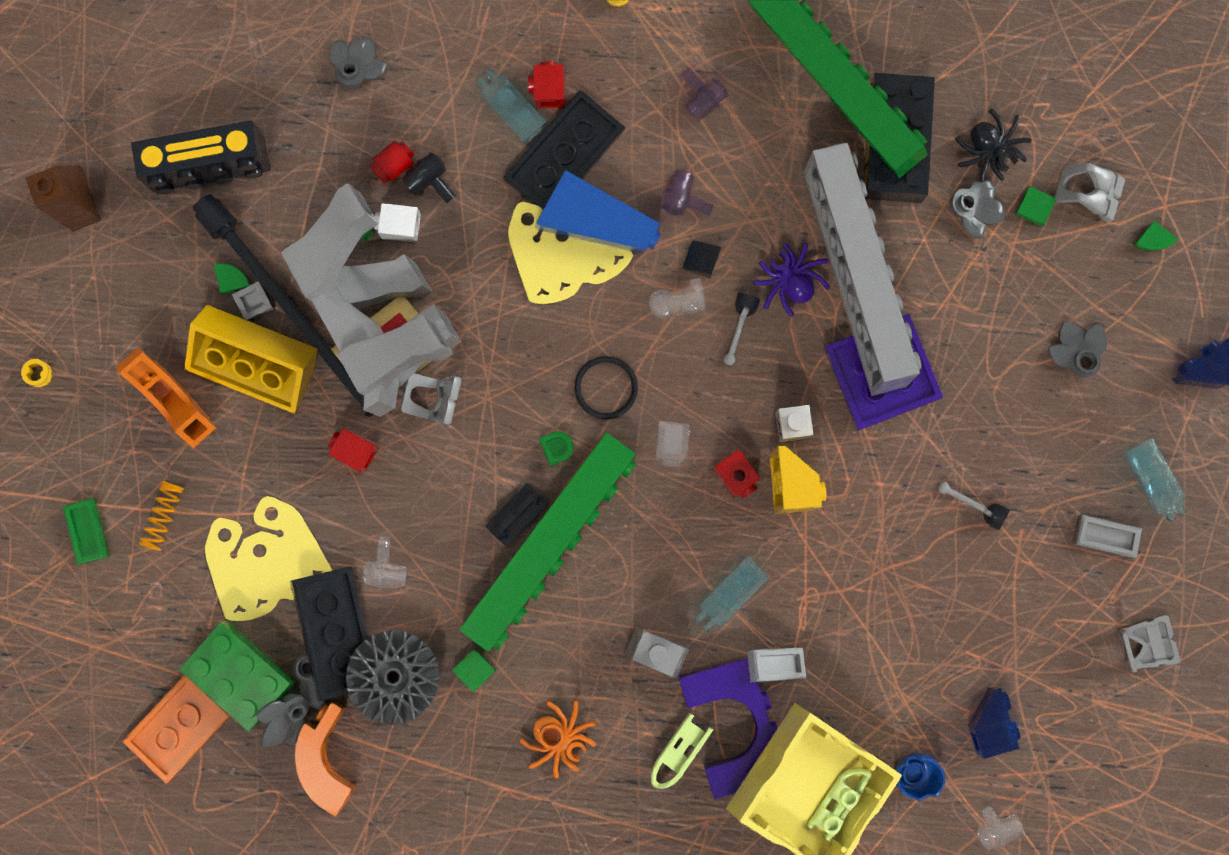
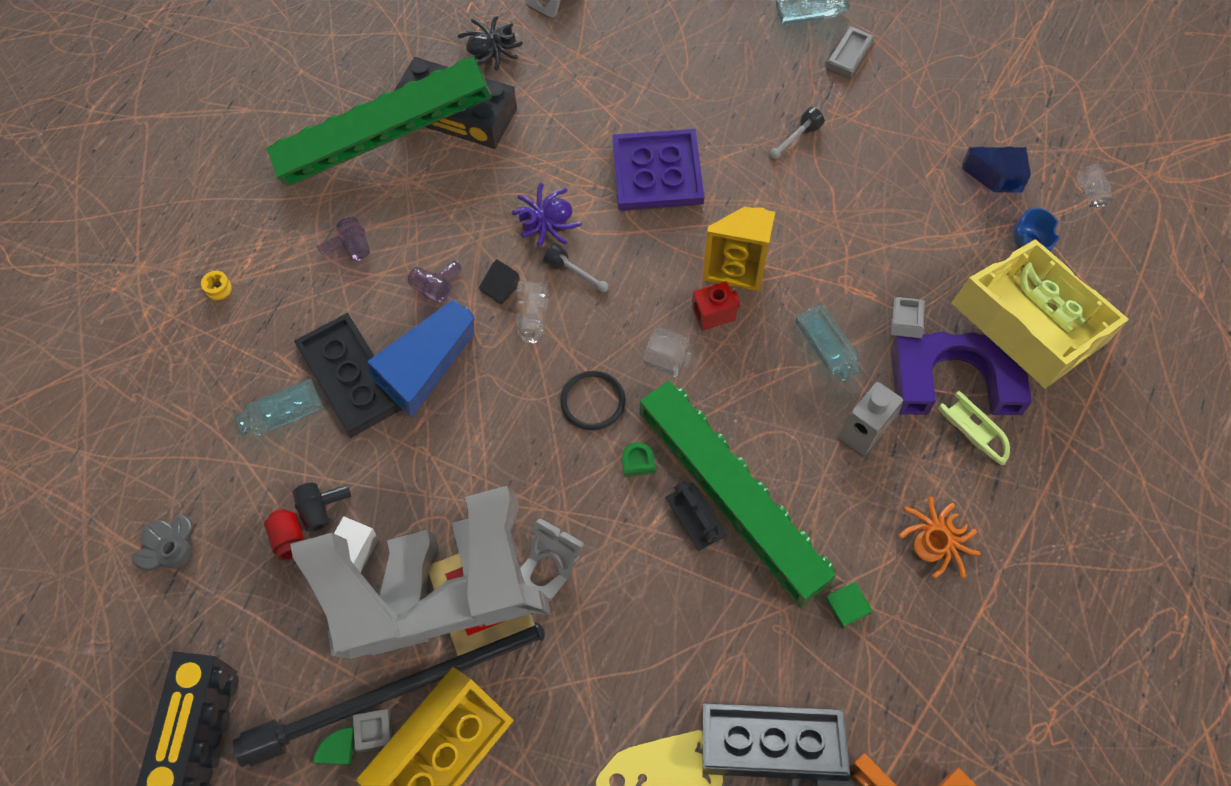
camera: 70 degrees left, 20 degrees down
(352, 450) = (576, 663): red brick -> none
(382, 573) = (719, 671): clear piece -> none
(392, 701) = (855, 669): dark grey wheel -> none
(547, 85) = (277, 365): red brick -> none
(552, 262) = (451, 413): light yellow piece -> none
(794, 423) = (682, 245): white brick -> none
(861, 269) = (560, 149): light grey brick -> none
(981, 207) = (537, 68): dark grey plate -> none
(1035, 206) = (553, 29): green tile -> none
(1077, 345) = (685, 29): dark grey plate -> none
(1156, 643) = (949, 42): light grey piece -> none

